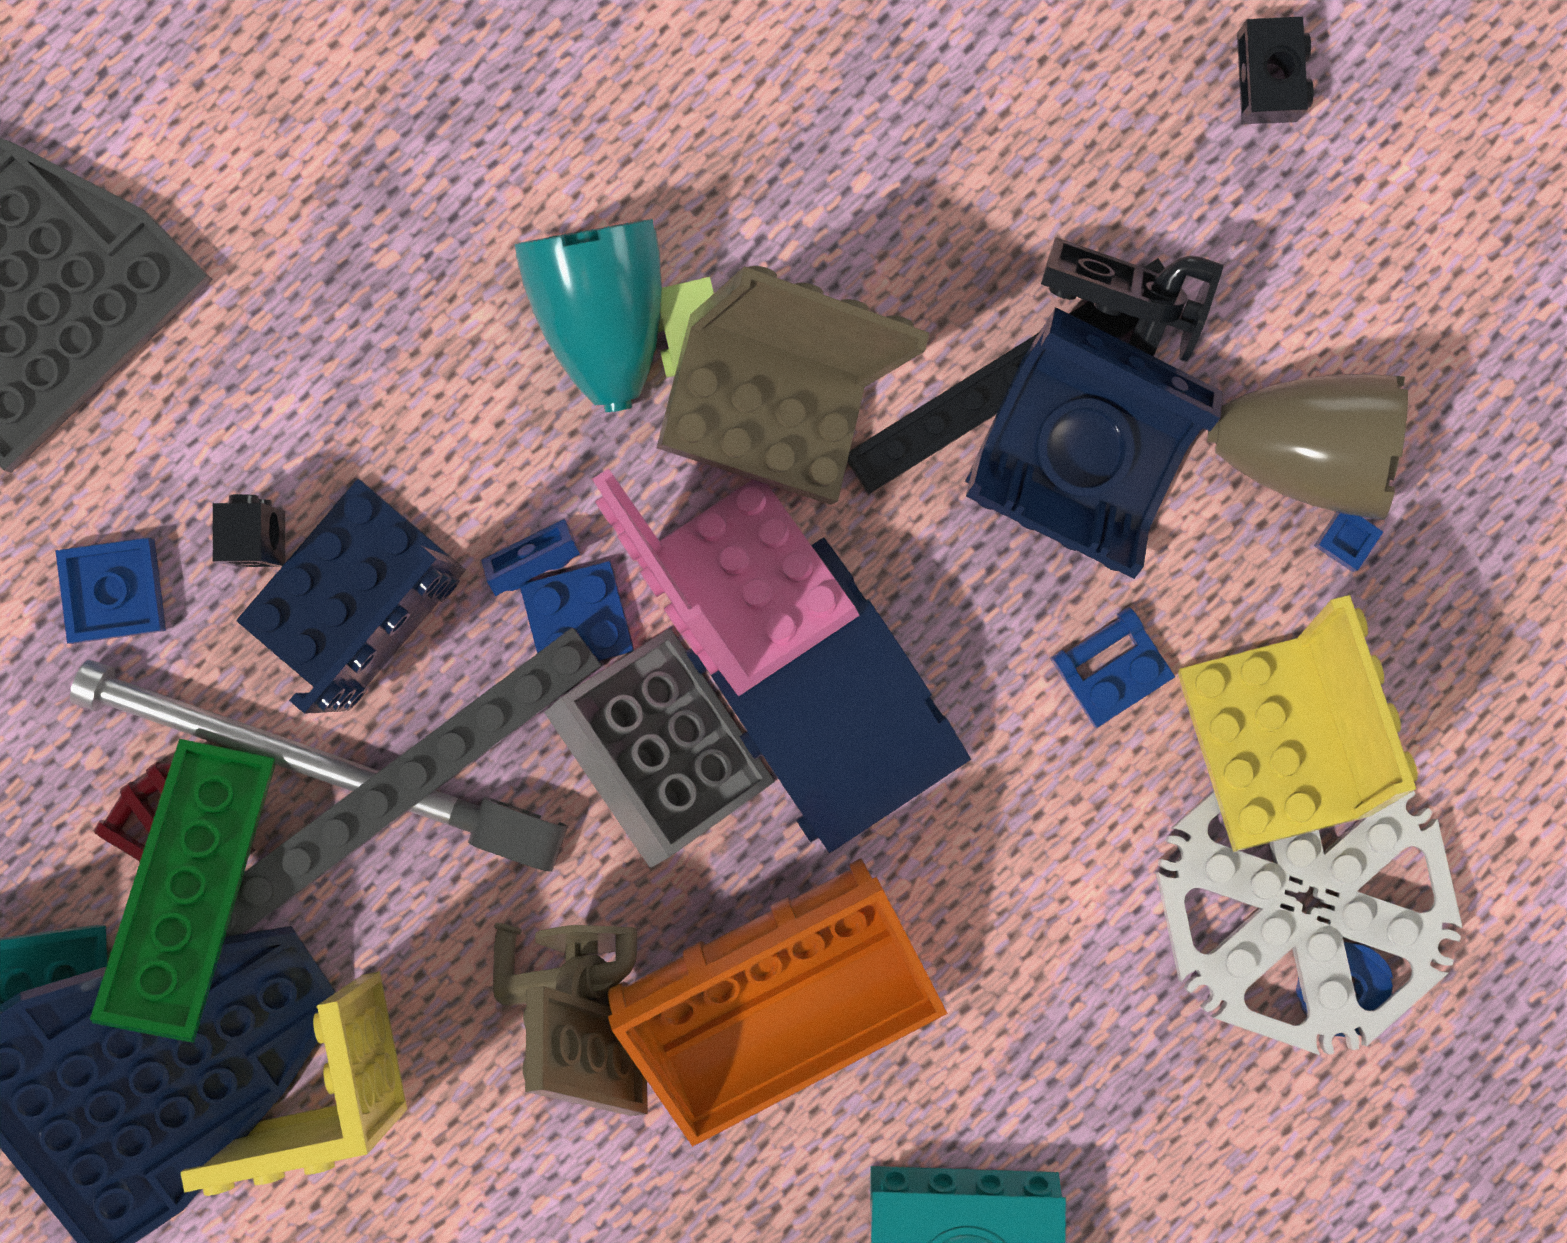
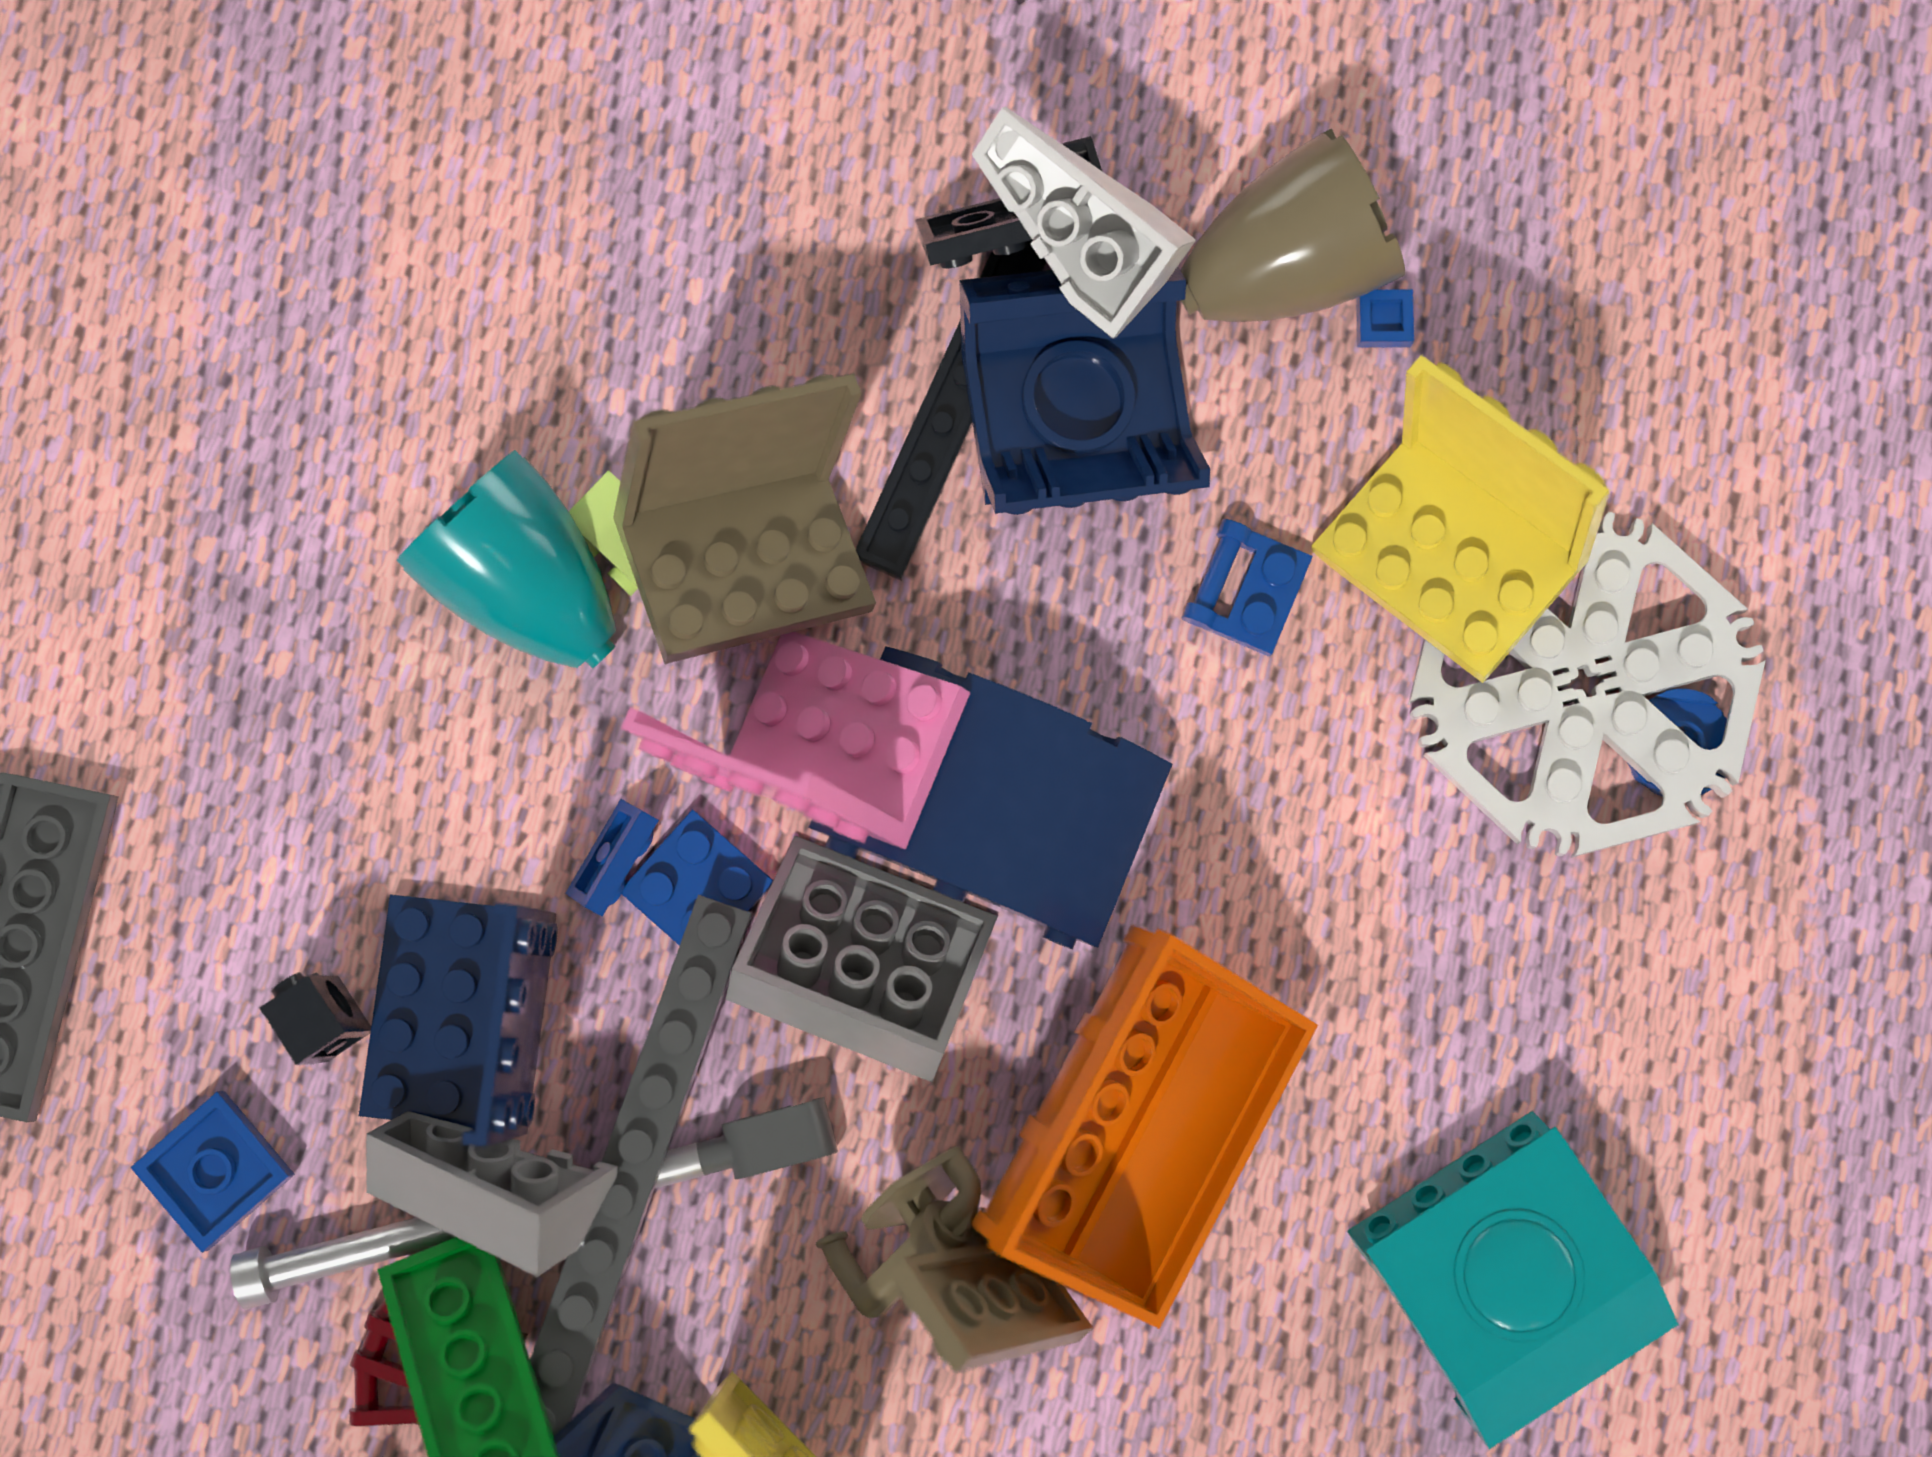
camera: 35 degrees left, 5 degrees down
(297, 755) = (489, 1196): none -> light grey wedge
(1174, 334) = (1089, 228): none -> white wedge

